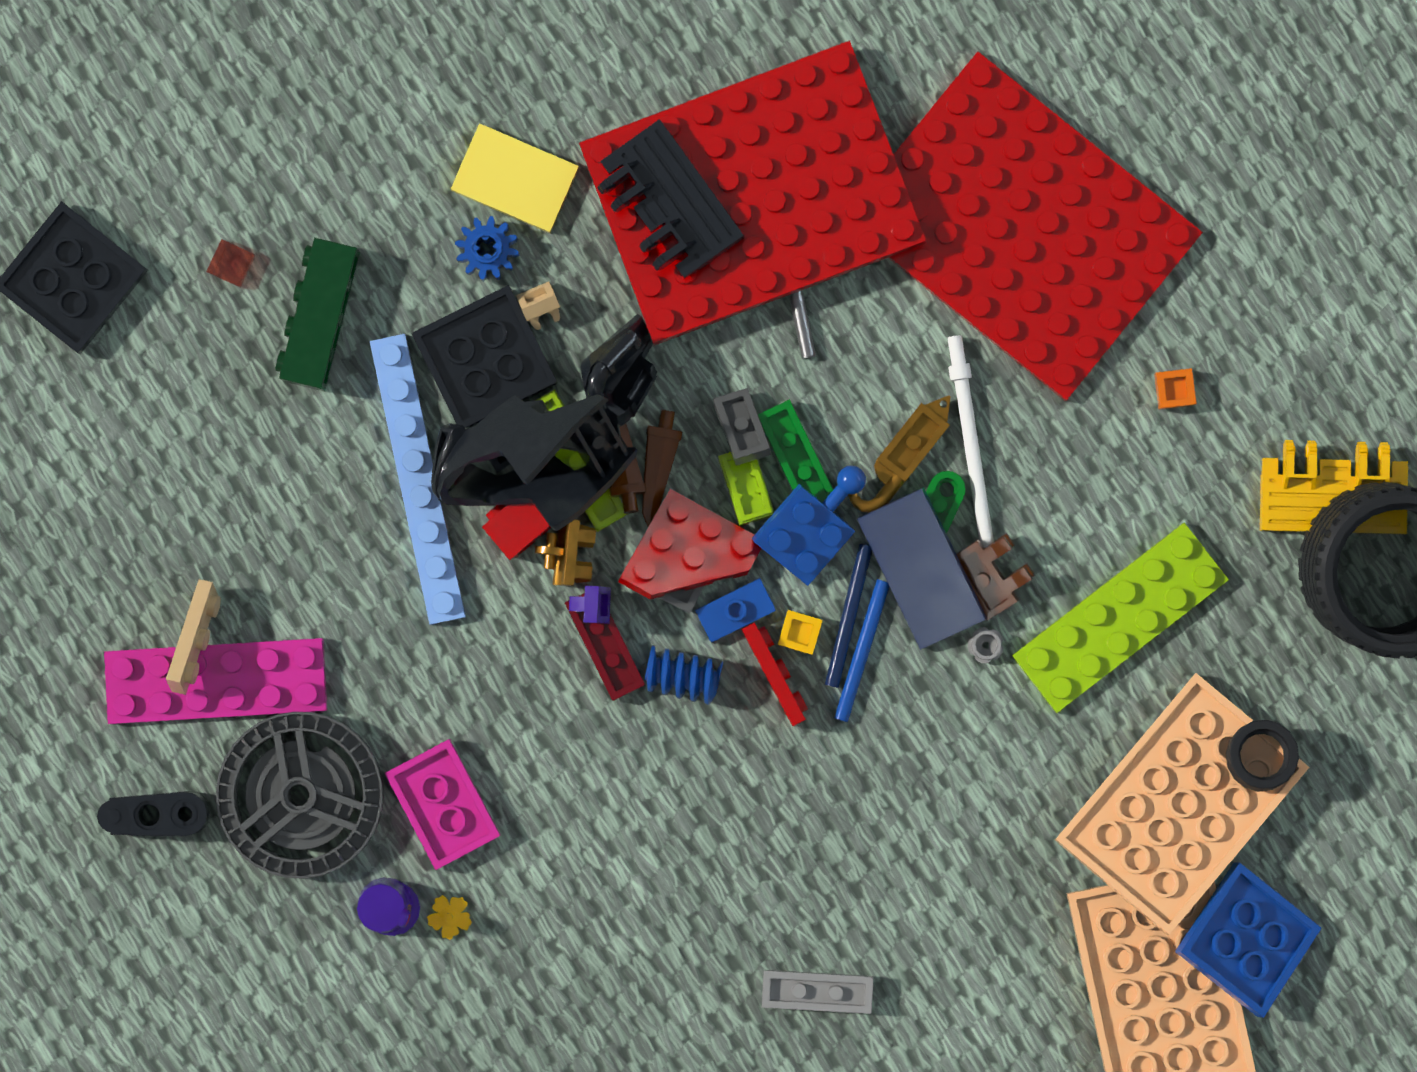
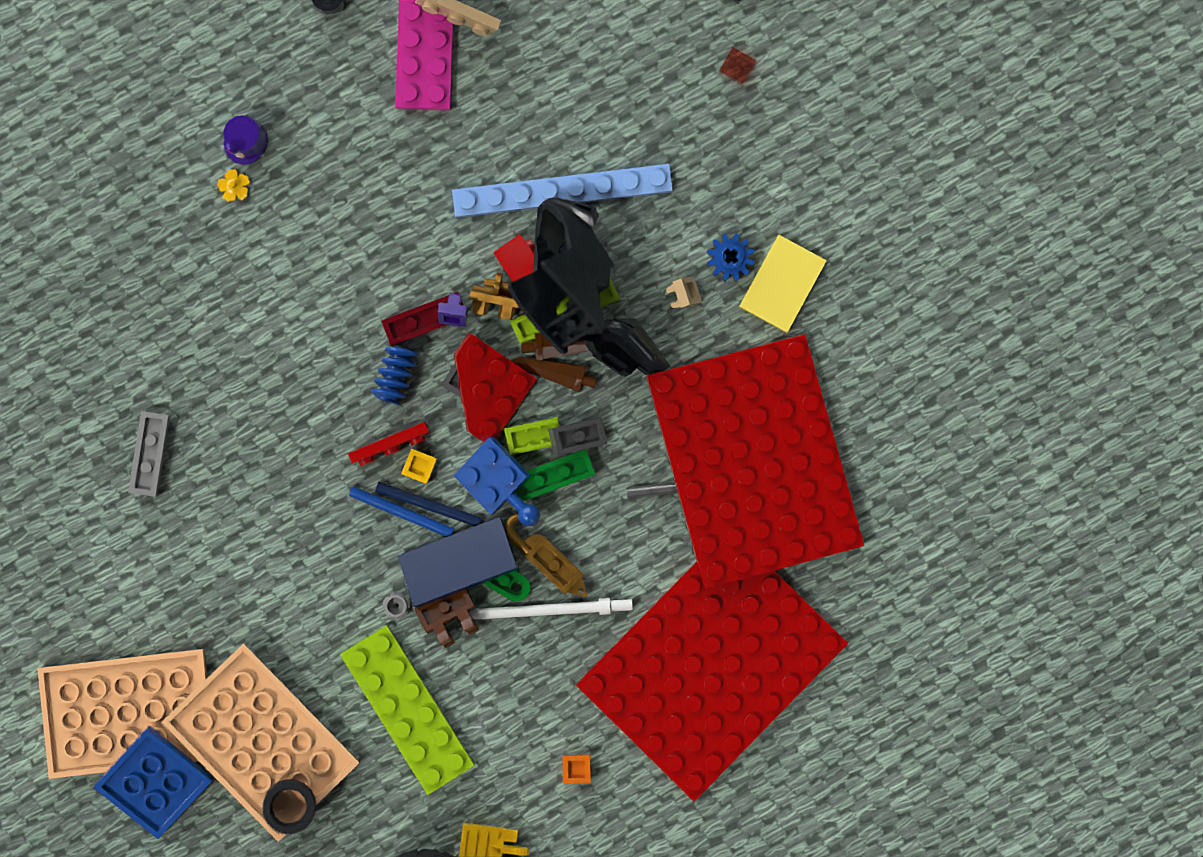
camera: 100 degrees right, 0 degrees up
(271, 803) = (329, 61): dark grey piece -> none
(318, 315) = (692, 127): dark green brick -> none
(442, 804) = (316, 187): dark pink plate -> none
(484, 357) = (648, 248): black plate -> none
(673, 196) = (755, 400): black hinge -> none
(735, 610) = (440, 419): blue plate -> none

